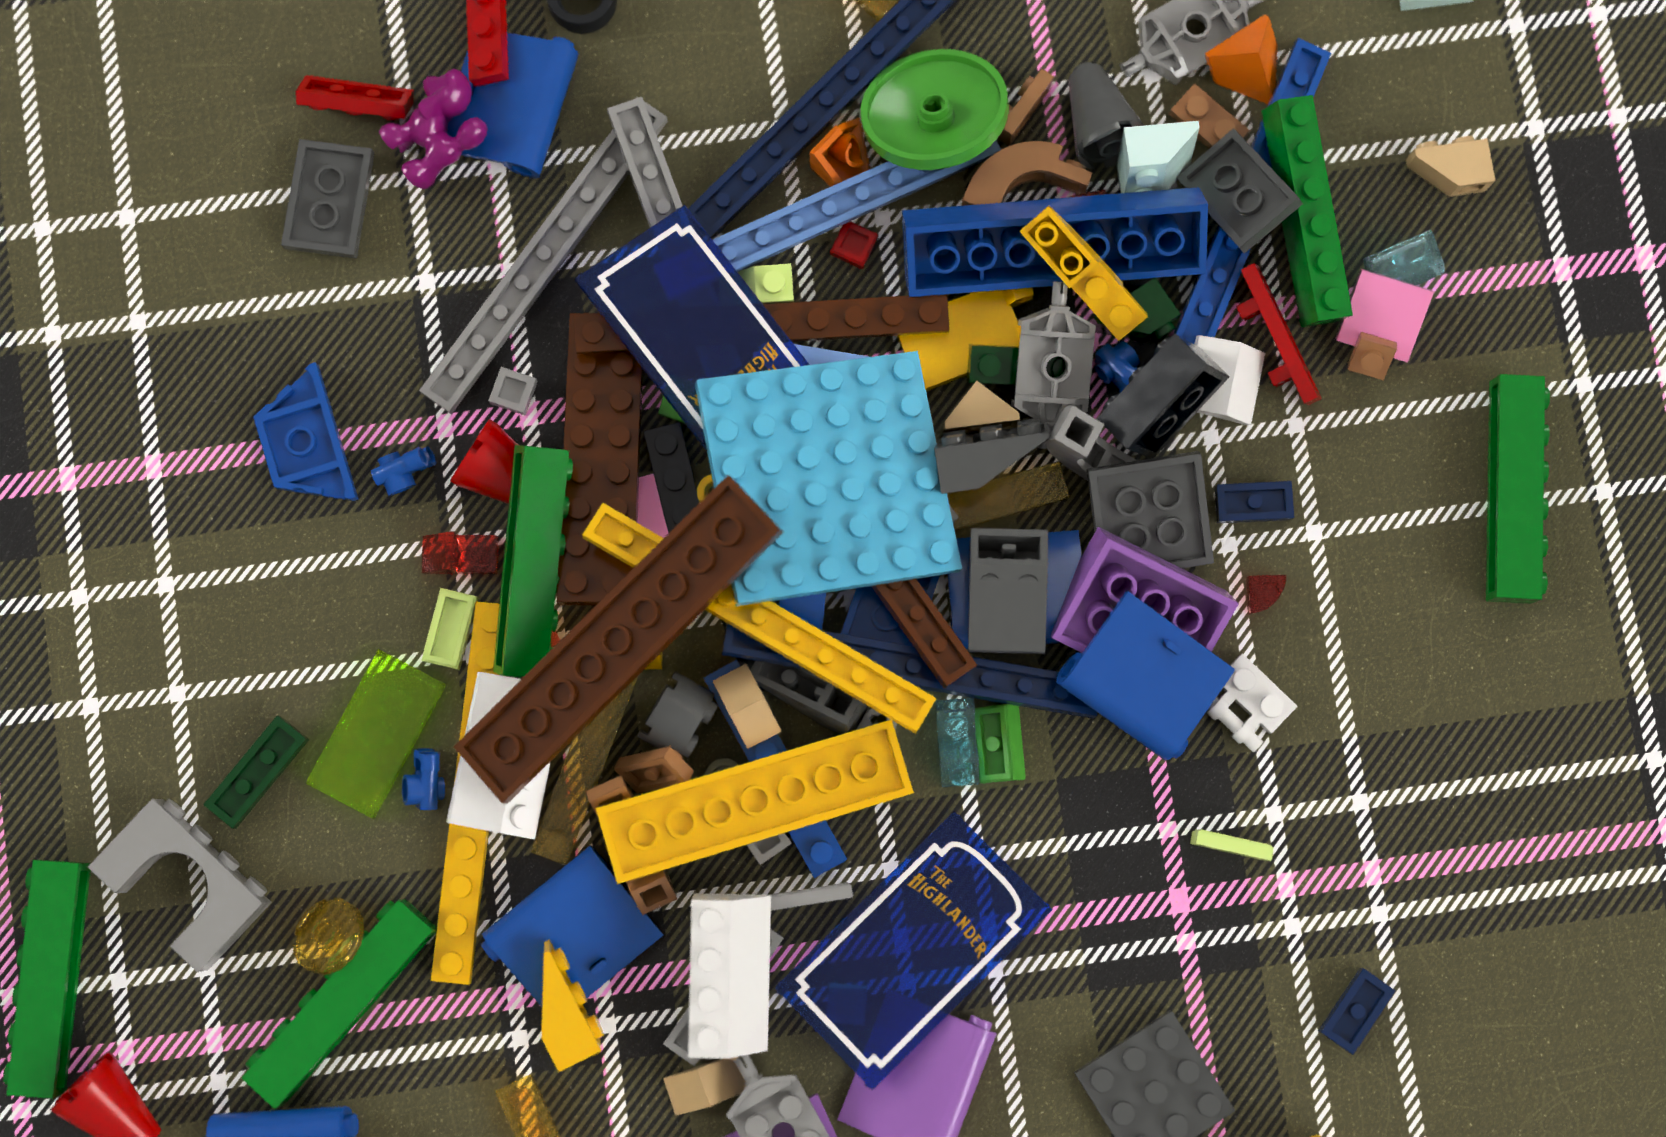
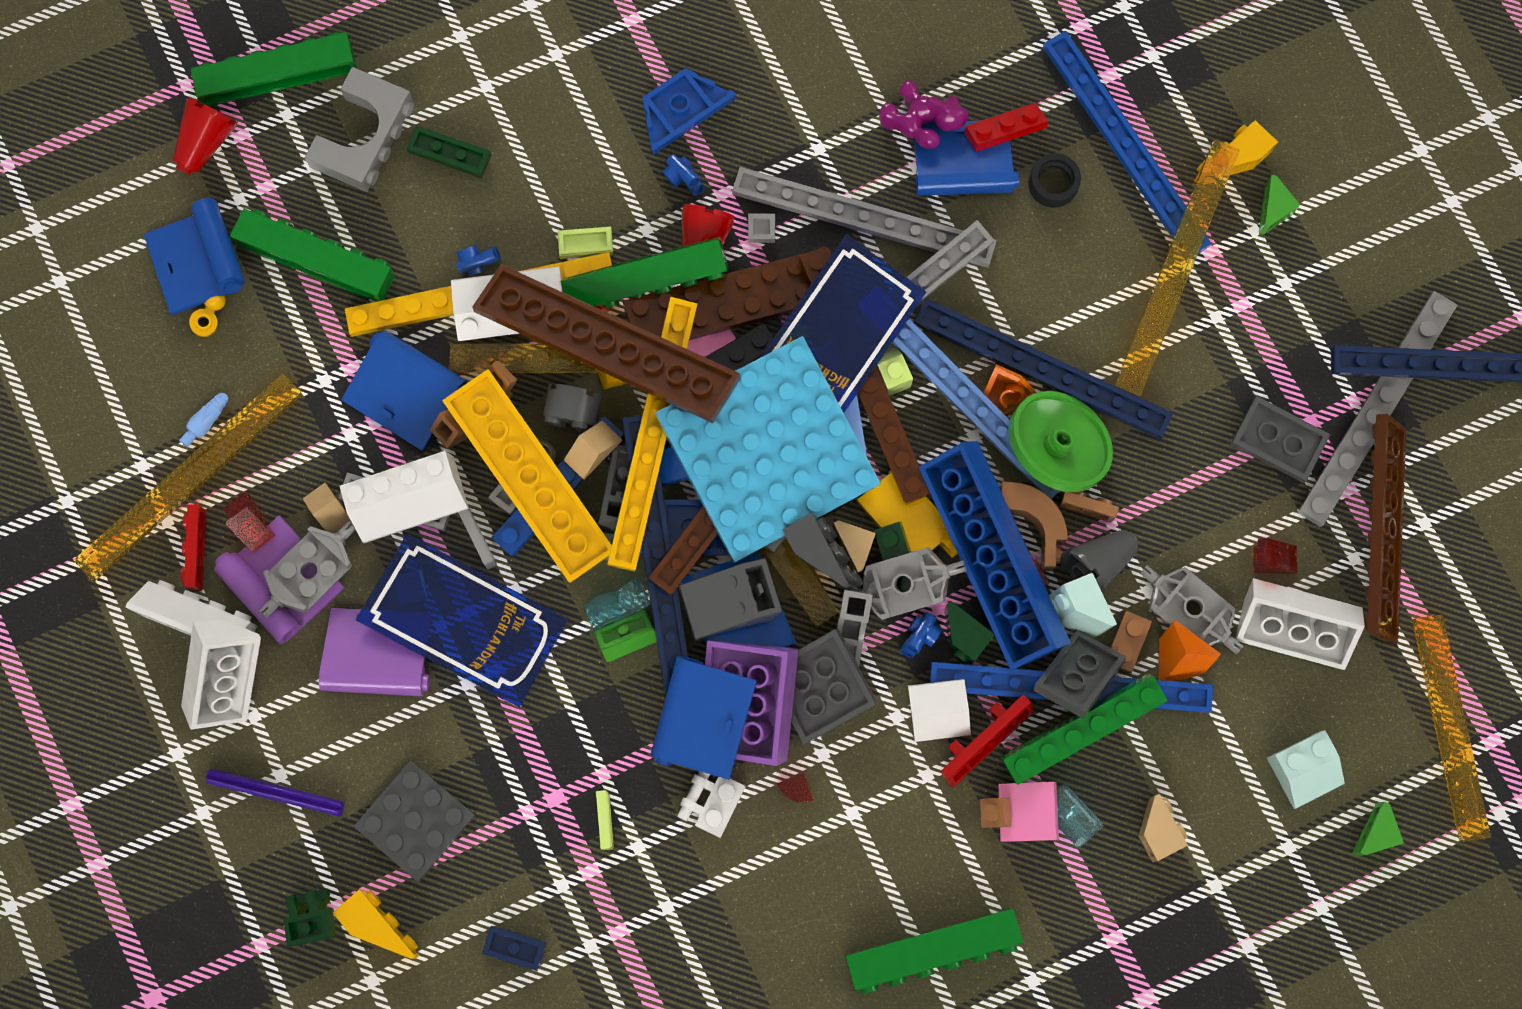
camera: 70 degrees right, 5 degrees down
(328, 198) = (851, 65): dark grey plate -> none
(328, 936) = (353, 232): clear yellow tile -> none
(355, 97) = (927, 58): red plate -> none
(376, 734) = (499, 219): clear neon green tile -> none
(459, 554) = (638, 231): clear red slope -> none
(565, 1023) = (342, 402): yellow slope -> none
(653, 769) = (530, 403): medium nougat plate -> none
(854, 244) = (946, 422): red tile -> none
(1084, 272) = (978, 578): yellow slope -> none
(1162, 396) = (907, 664): black brick -> none
(1254, 502) = (858, 760): dark blue plate -> none

